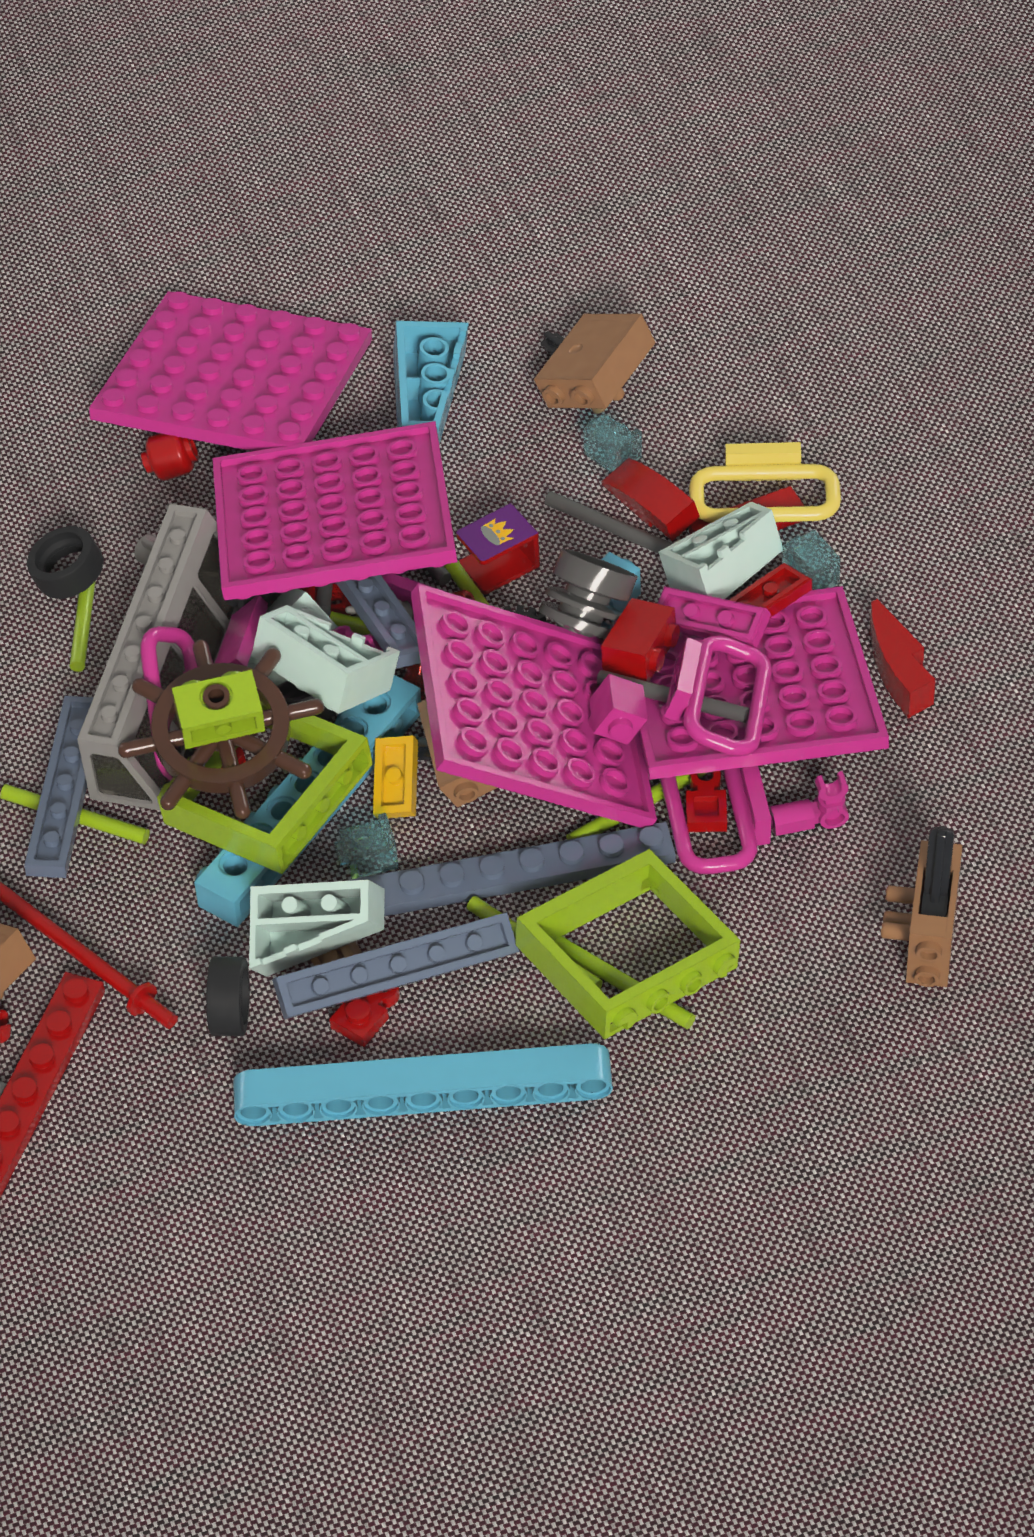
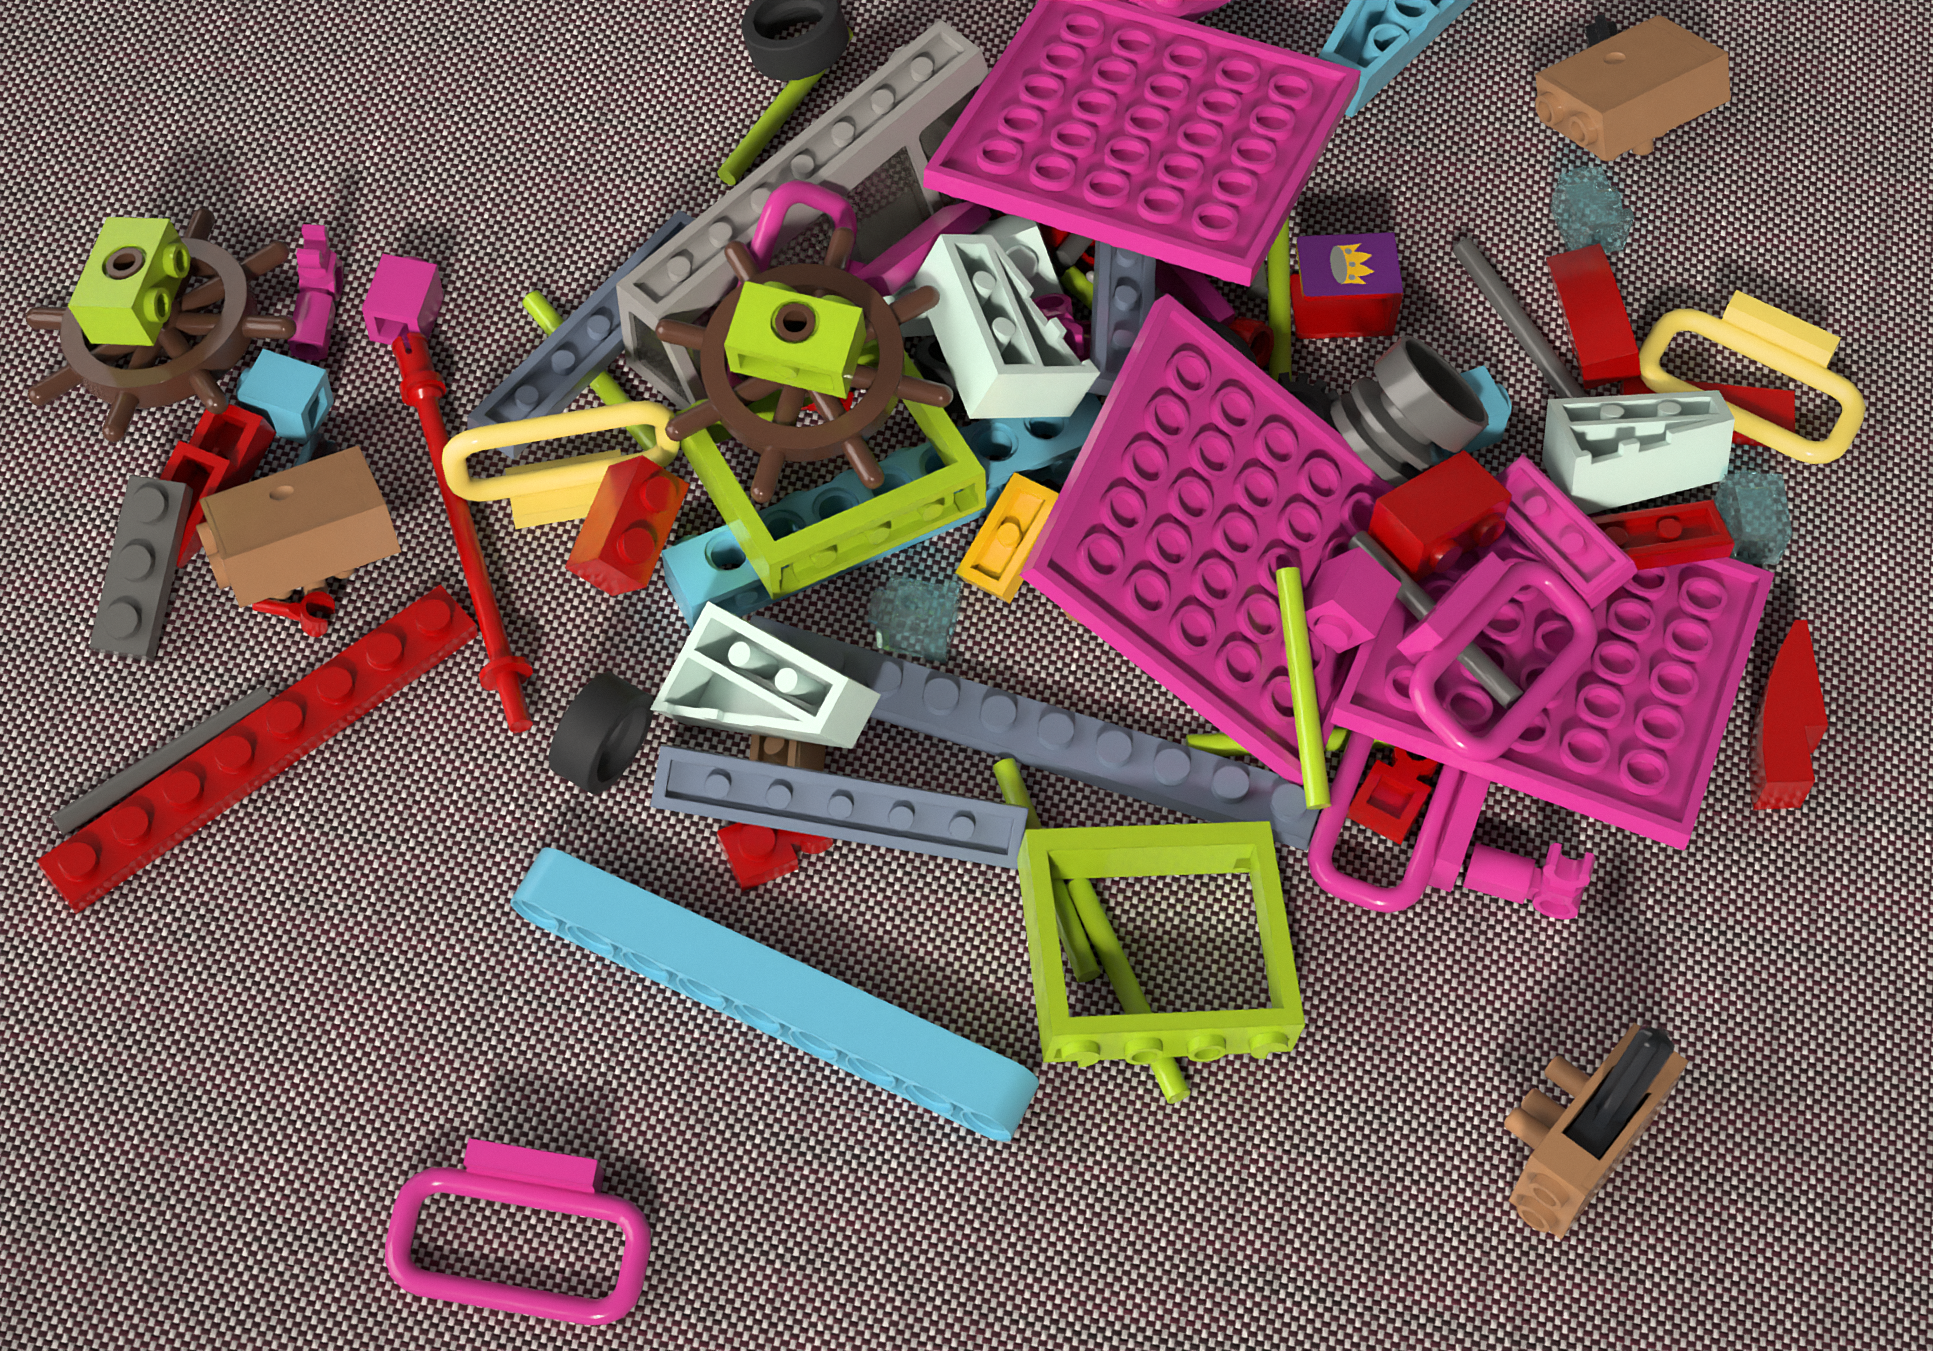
camera: 25 degrees right, 10 degrees up
(110, 877) = (559, 487): none -> light yellow bar
(162, 880) = (627, 526): none -> red brick
(352, 1249) = (529, 1180): none -> dark pink bar
(622, 769) = (1303, 688): none -> lime bar

